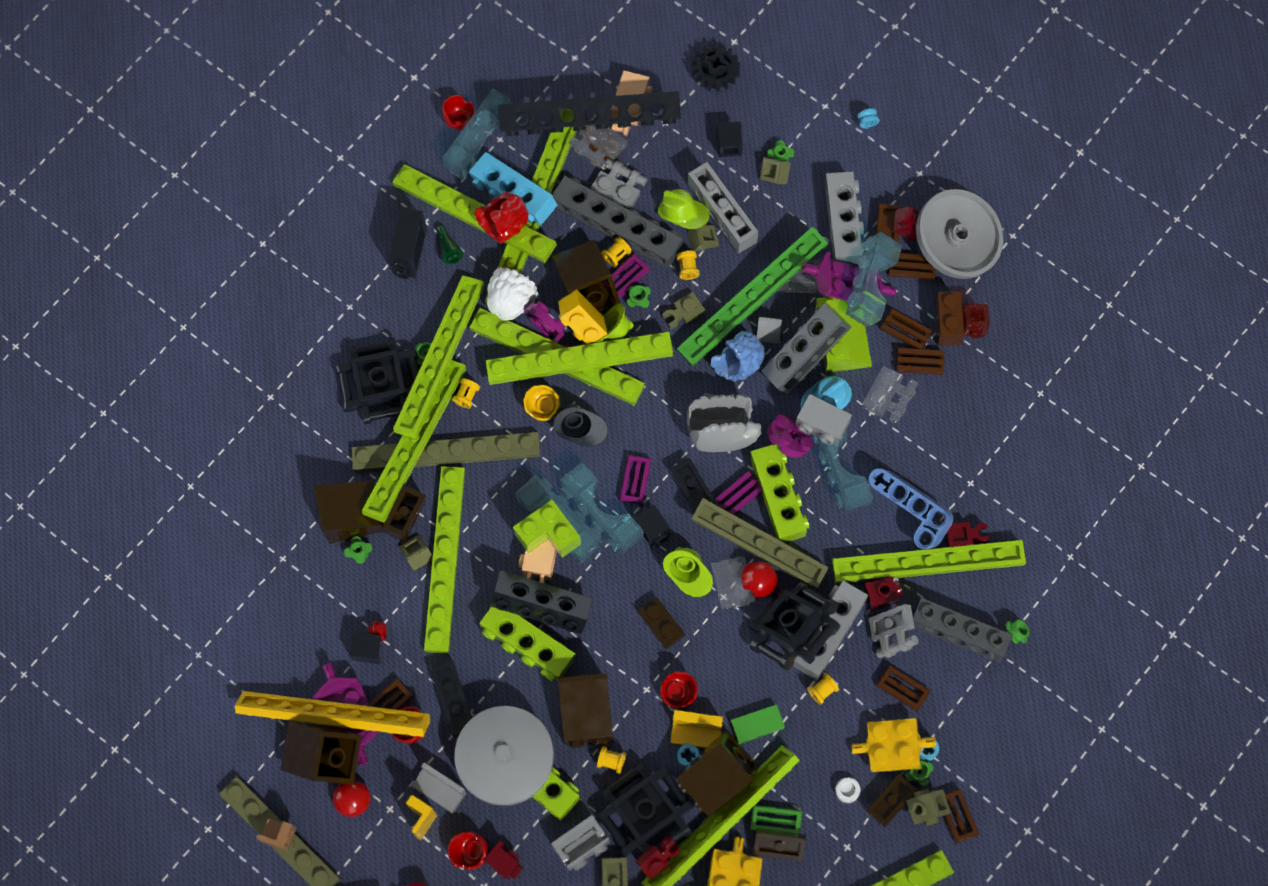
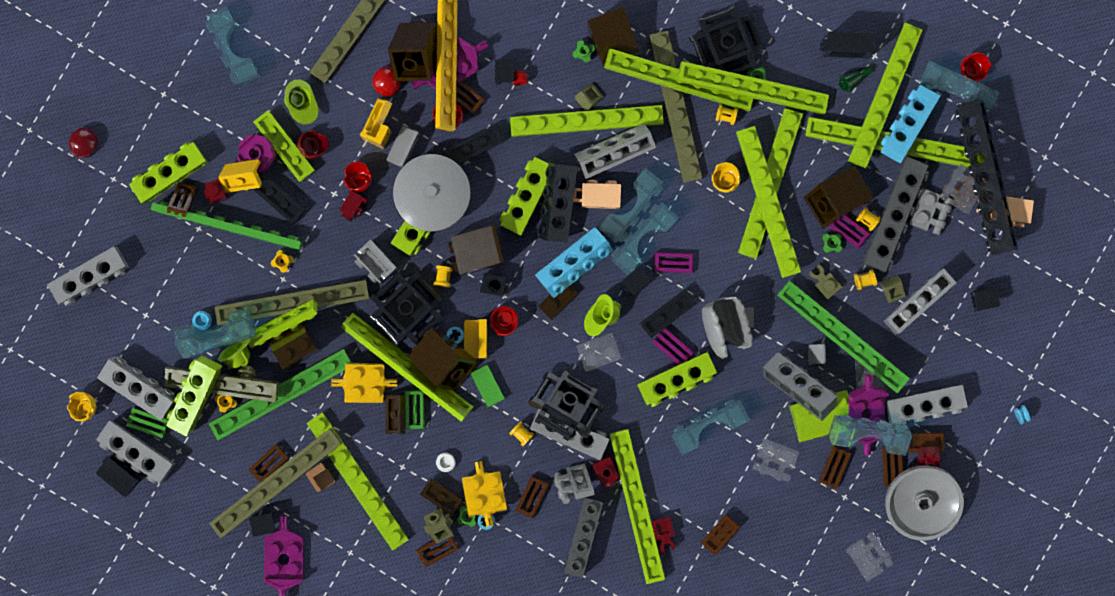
camera: 80 degrees right, 15 degrees up
(277, 834) = (348, 29): medium nougat panel -> none
(395, 815) = (377, 117): none -> yellow tile
(404, 514) = (616, 82): dark brown brick -> none
(488, 526) = (615, 151): none -> light grey brick
(503, 216) = (878, 120): red hair -> none
(509, 293) = (814, 136): white hair -> none
(544, 322) = (791, 174): magenta plate -> none
(545, 525) = (619, 196): lime brick -> none
(580, 426) = (711, 210): black piece -> none
(582, 317) = (801, 199): yellow brick -> none
(607, 589) = (574, 262): none -> medium azure brick
(616, 324) = (800, 222): lime piece -> none
(628, 707) = (488, 278): none -> black brick
(655, 859) = (369, 321): dark red plate -> none
(683, 210) = (913, 269): lime piece -> none
(717, 76) = (1049, 286): black gear -> none
(740, 357) = (788, 333): medium blue hair -> none
(759, 543) = (631, 368): olive plate -> none
(759, 579) = (603, 372): red hair -> none
(775, 170) = (961, 341): olive slope -> none
(780, 147) = (973, 345): bright green plate -> none
(788, 436) = (731, 389): magenta plate -> none
(823, 420) = (739, 407): light grey hinge -> none
(831, 390) = (765, 408): medium azure piece -> none
(909, 502) = (681, 484): medium blue beam -> none
(920, 353) = (808, 479): reddish brown tile -> none
(949, 318) = (848, 502): reddish brown brick -> none
(973, 469) = (720, 534): none -> reddish brown plate
(976, 320) = (847, 523): clear red brick -> none
(1018, 630) = (589, 582): bright green plate -> none
(1019, 310) = (865, 561): none -> clear plate

